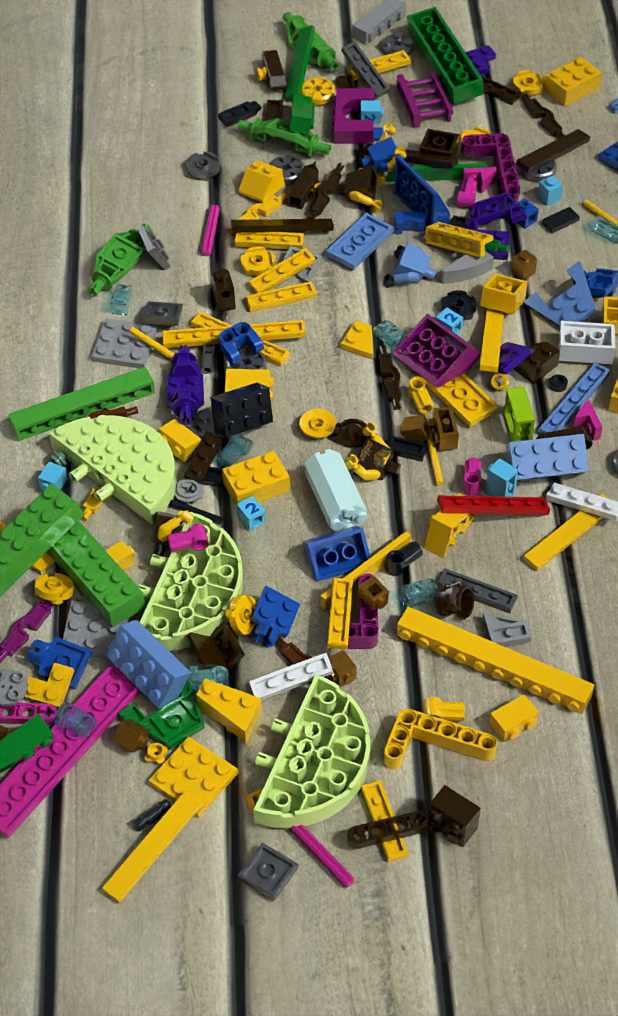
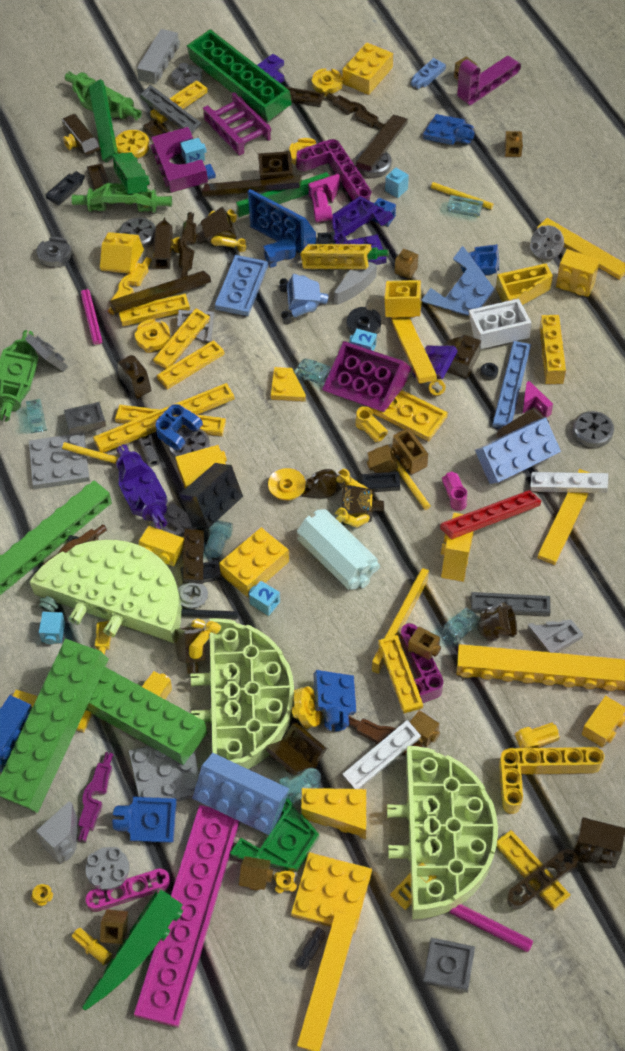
camera: 20 degrees left, 5 degrees up
(54, 588) = (112, 751): yellow plate -> none
(54, 689) = (154, 853): yellow plate -> none
(75, 719) = (194, 878): clear light blue leg -> none
(193, 538) = (227, 646): dark pink piece -> none
(336, 552) = (365, 610): blue slope -> none
(384, 152) = (230, 190): blue torso -> none
(391, 384) = (336, 422): dark brown piece -> none
(399, 559) = (429, 595): black piece -> none
(501, 479) = (486, 486): medium azure brick -> none
(519, 414) = (473, 416): lime window -> none
(560, 219) = (417, 208): black tile -> none

